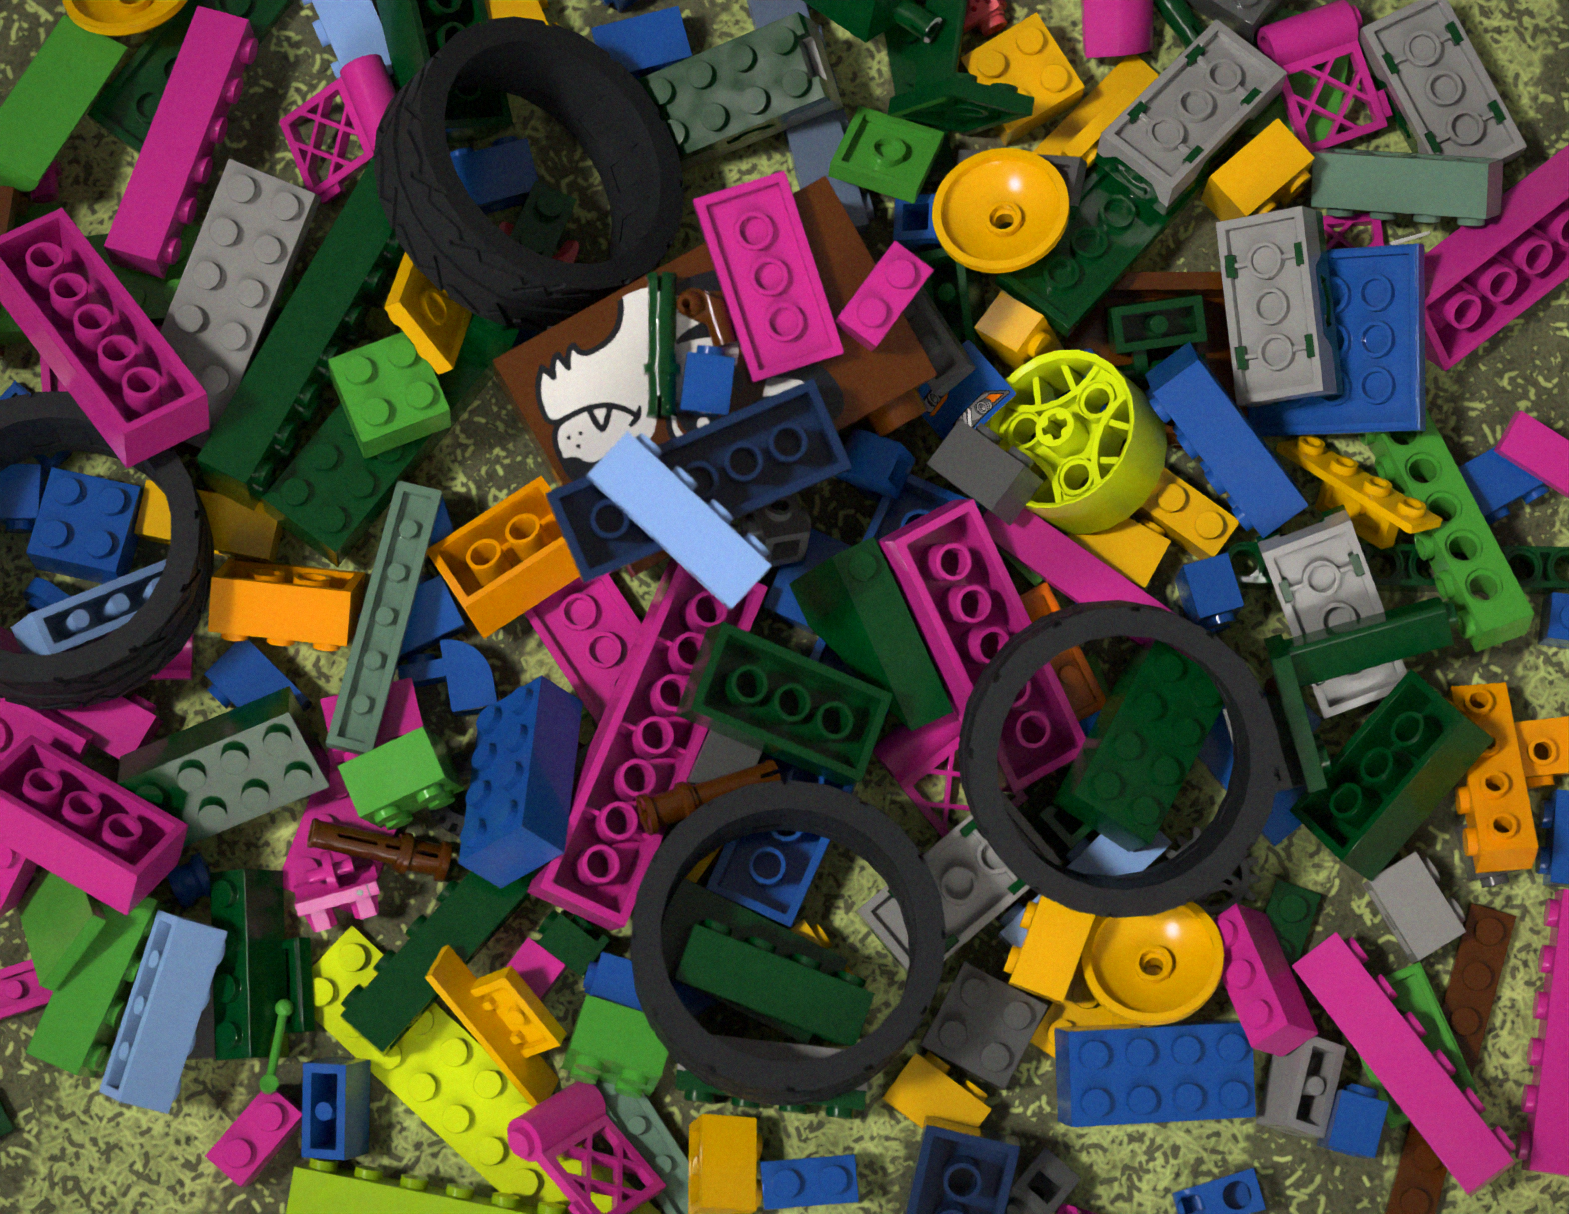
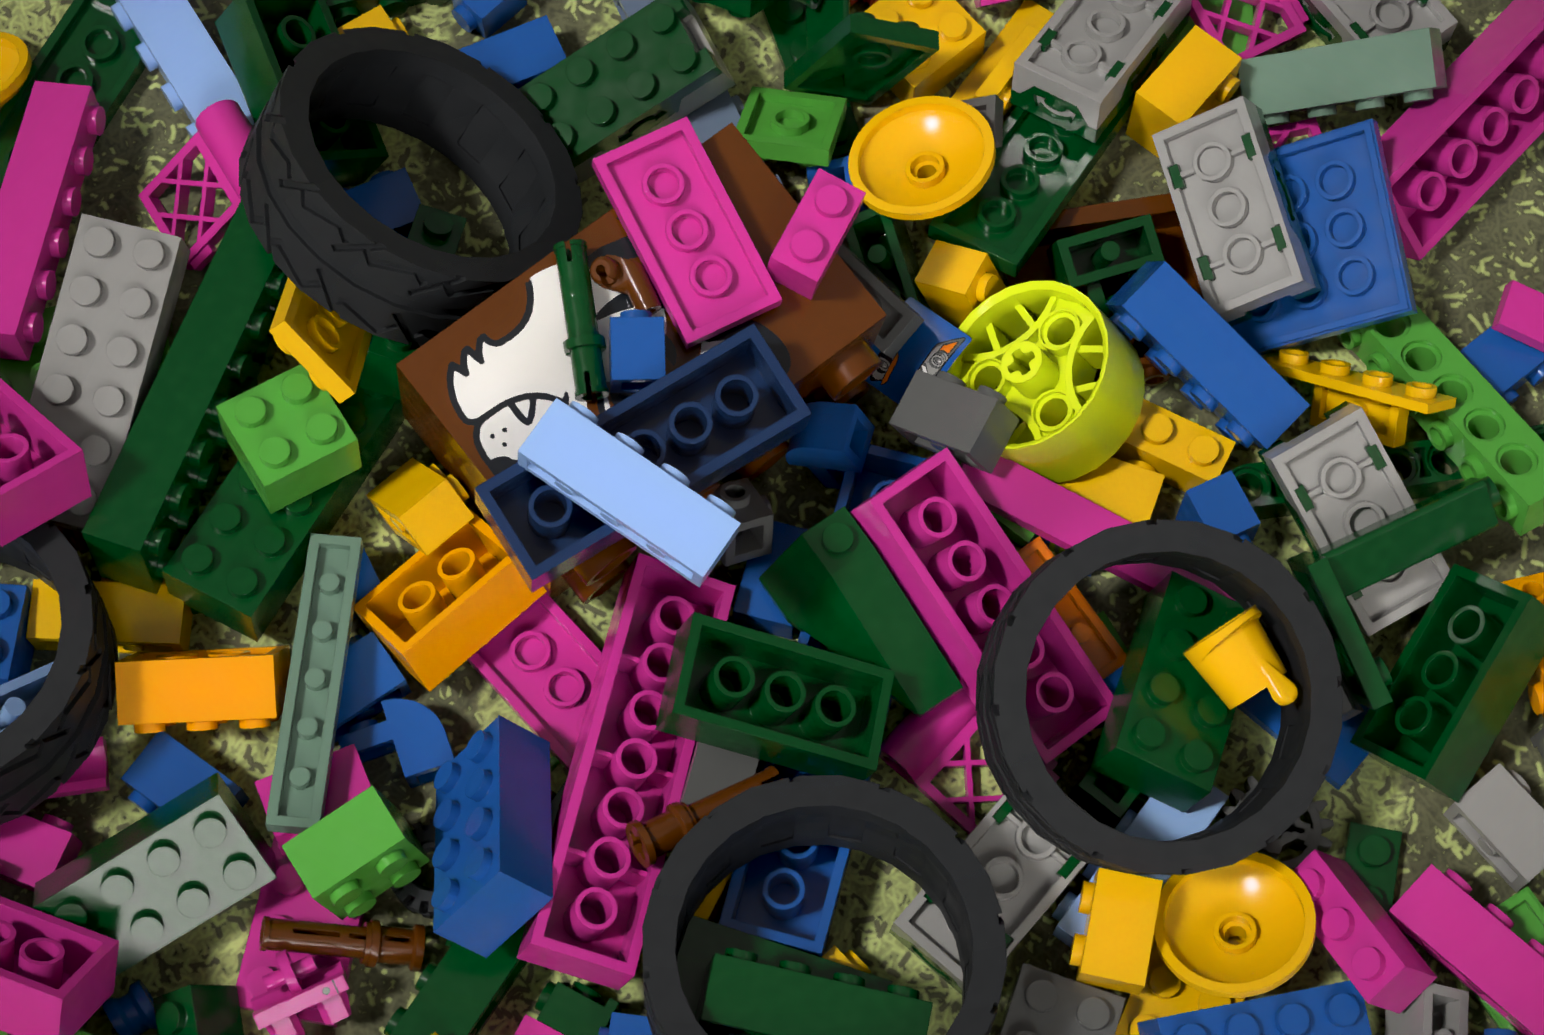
camera: 10 degrees left, 10 degrees down
(500, 464) = (422, 504): none -> yellow brick
(1198, 735) = (1242, 662): none -> yellow hat

